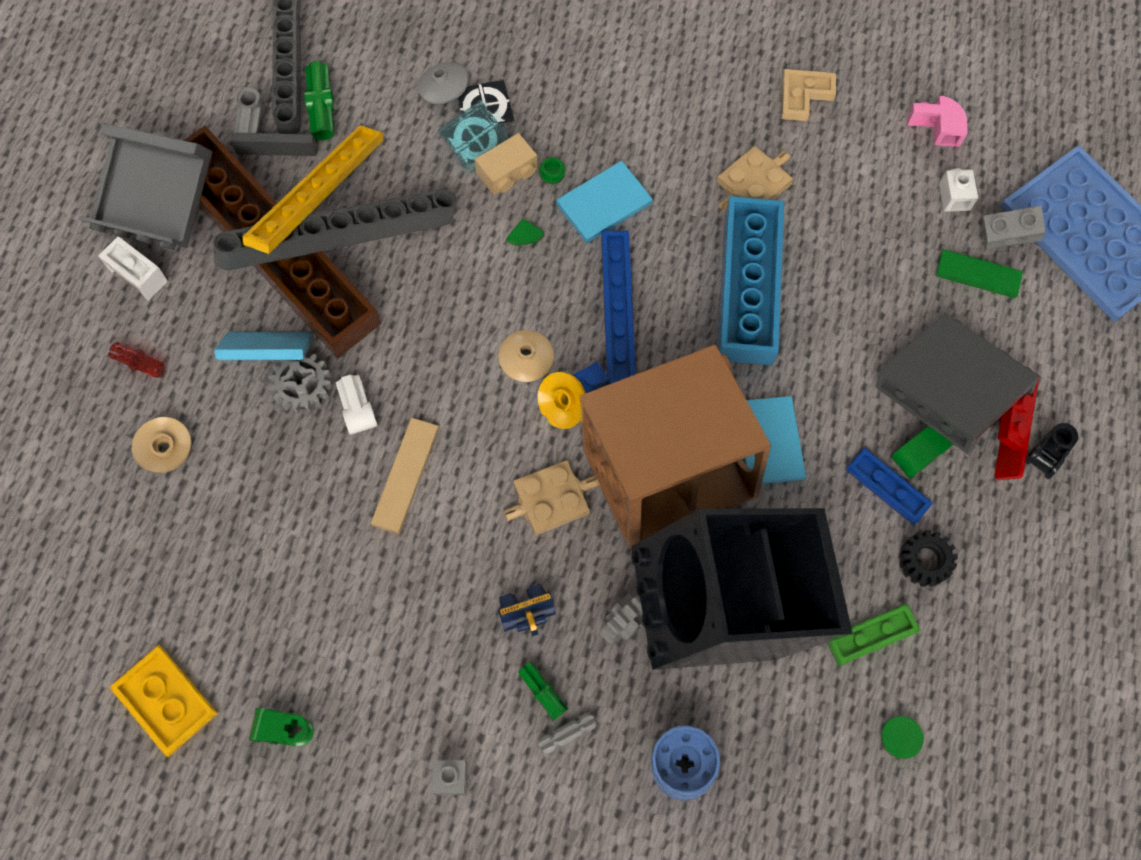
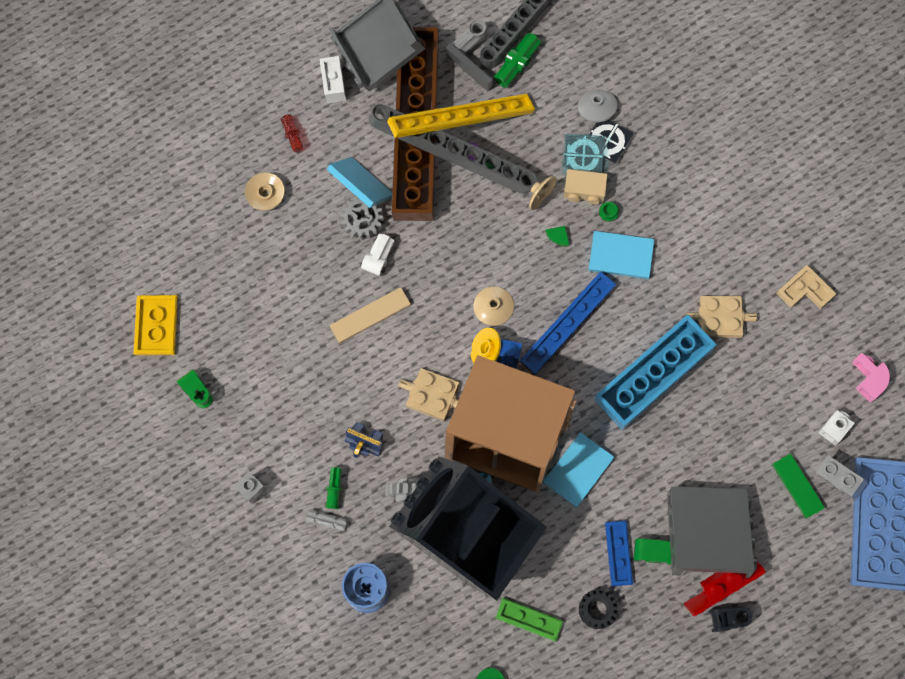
camera: 55 degrees right, 5 degrees up
(467, 201) = (541, 191): none -> tan dish

